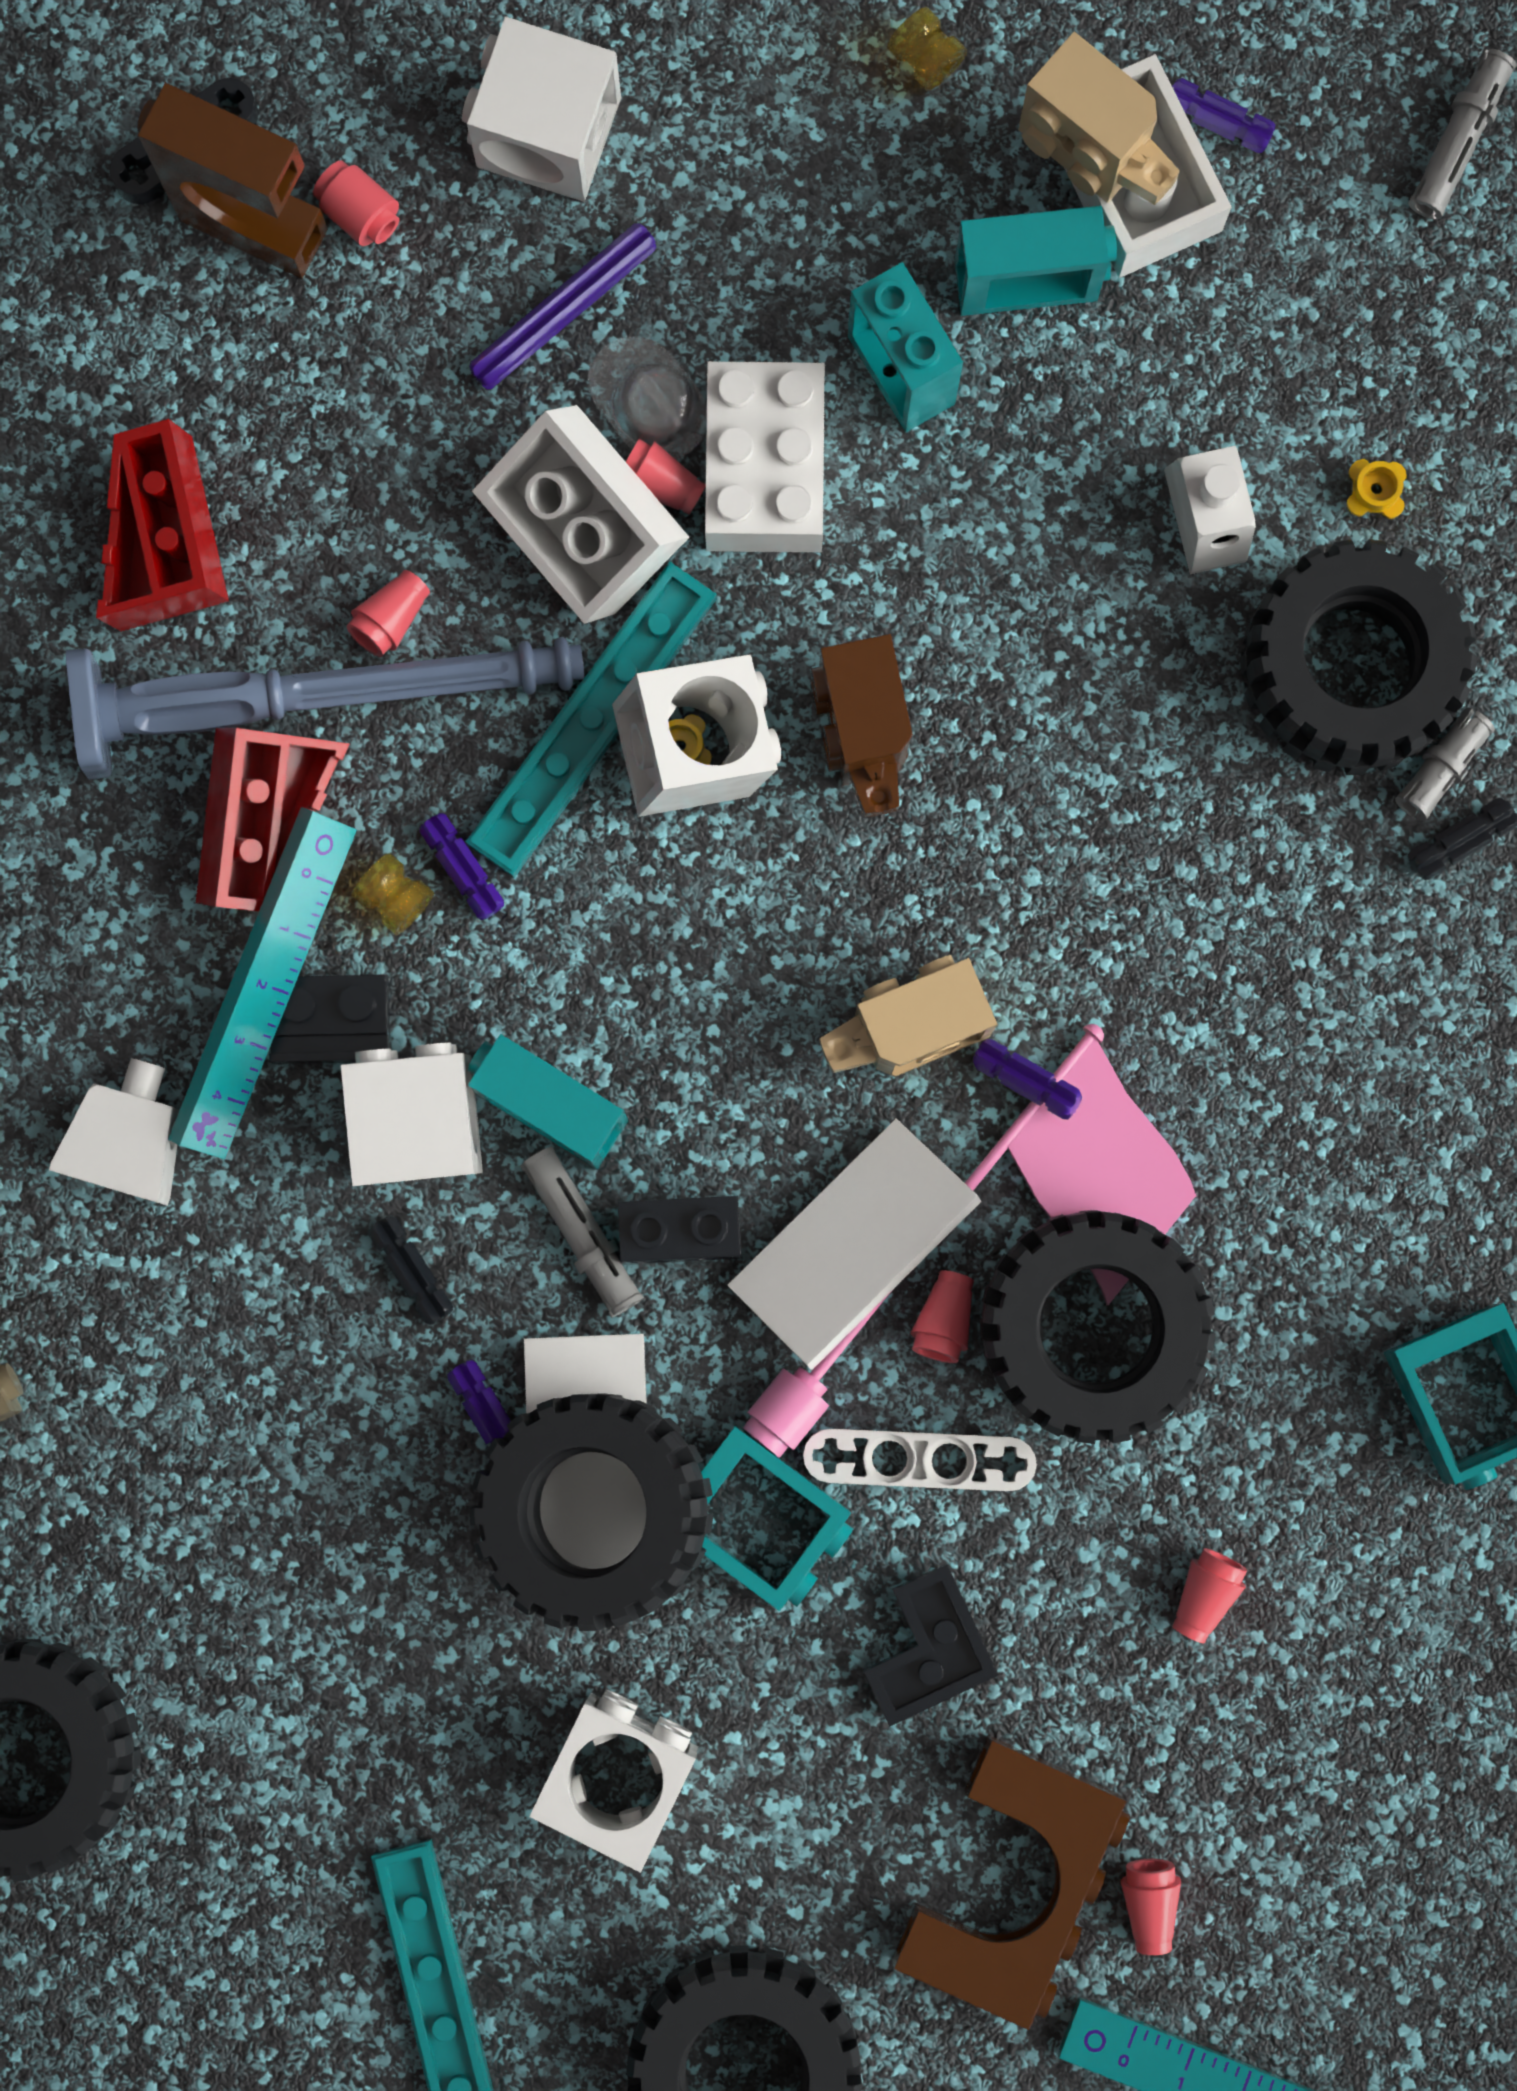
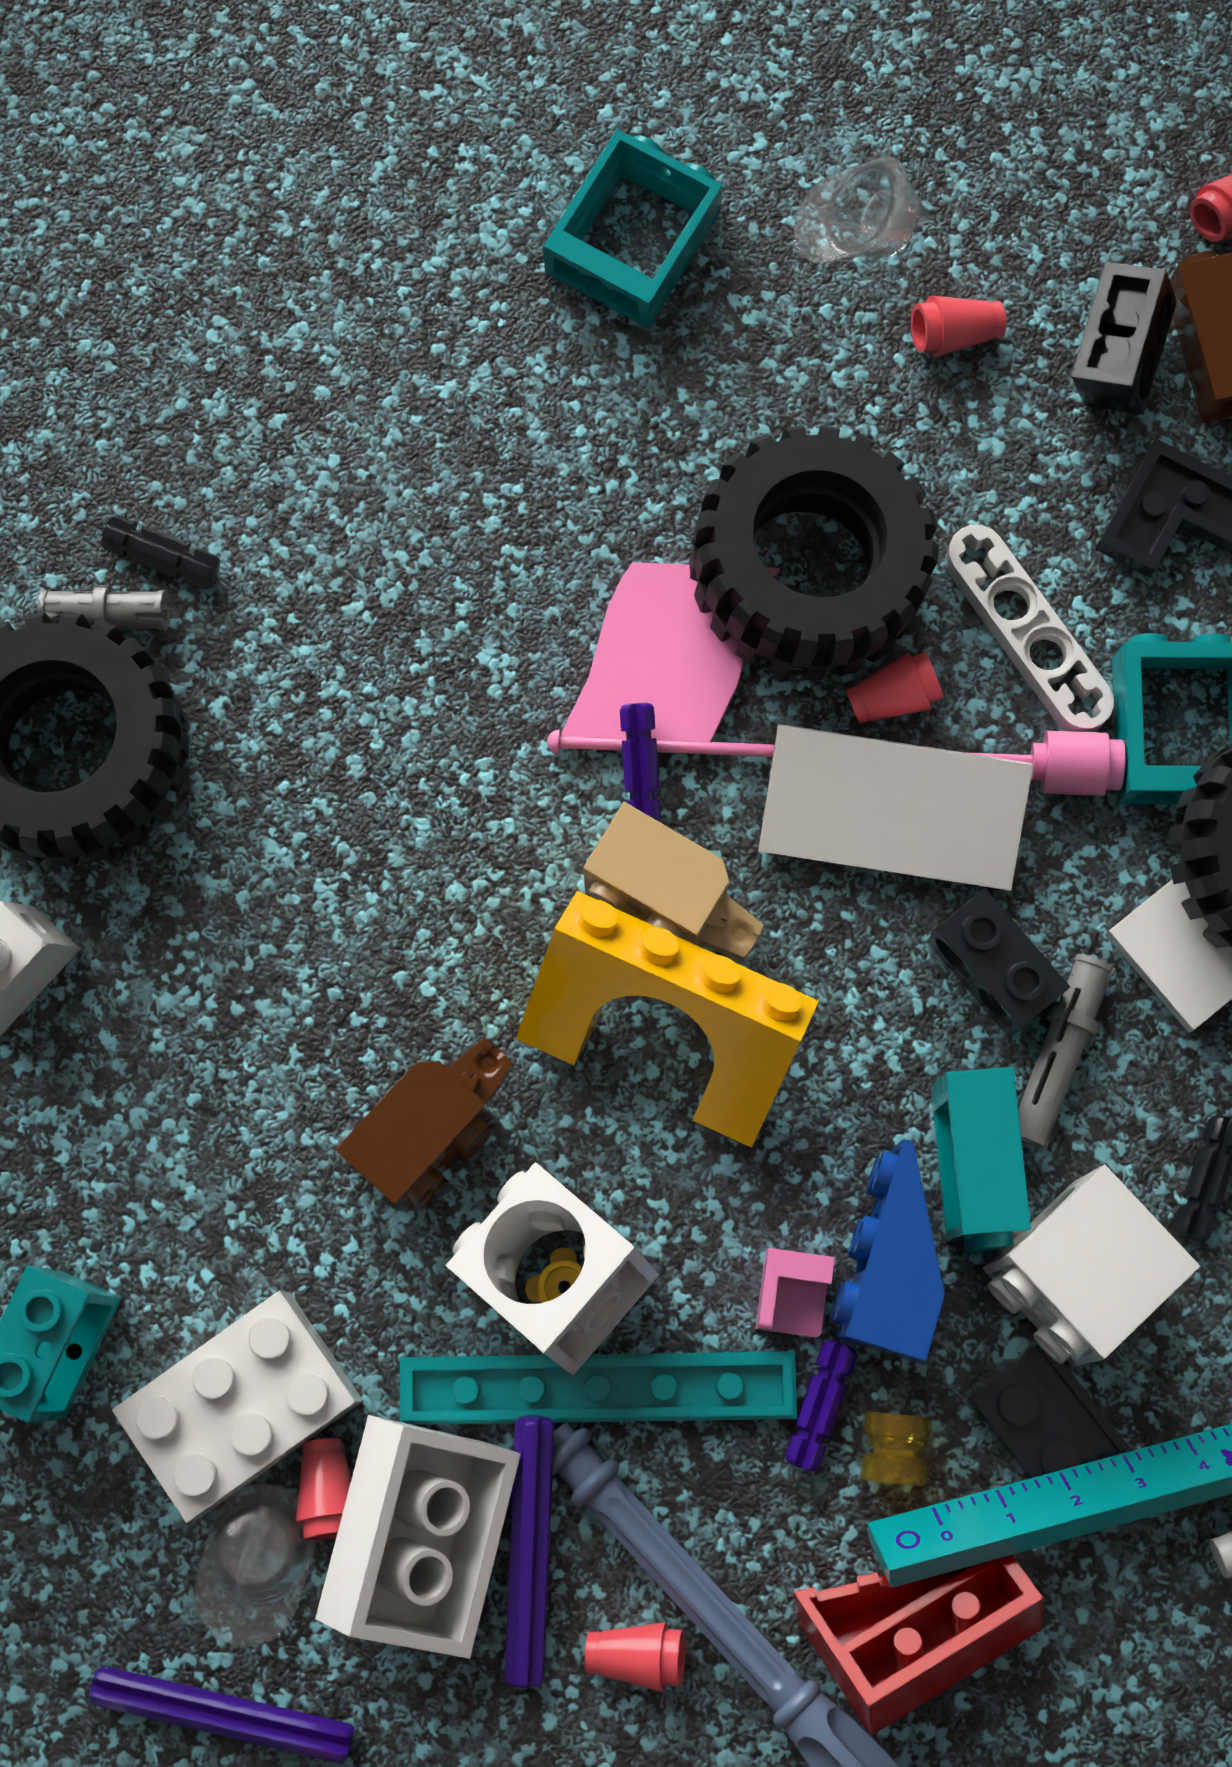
camera: 125 degrees left, 5 degrees down
(503, 974) = (897, 1274): none -> blue slope
(515, 588) = (529, 1552): none -> dark purple axle
(555, 904) = (793, 1292): none -> bright pink panel
(771, 997) = (613, 955): none -> yellow arch
(1096, 1712) = (1124, 337): none -> black brick
(1355, 1581) = (859, 212): none -> clear piece

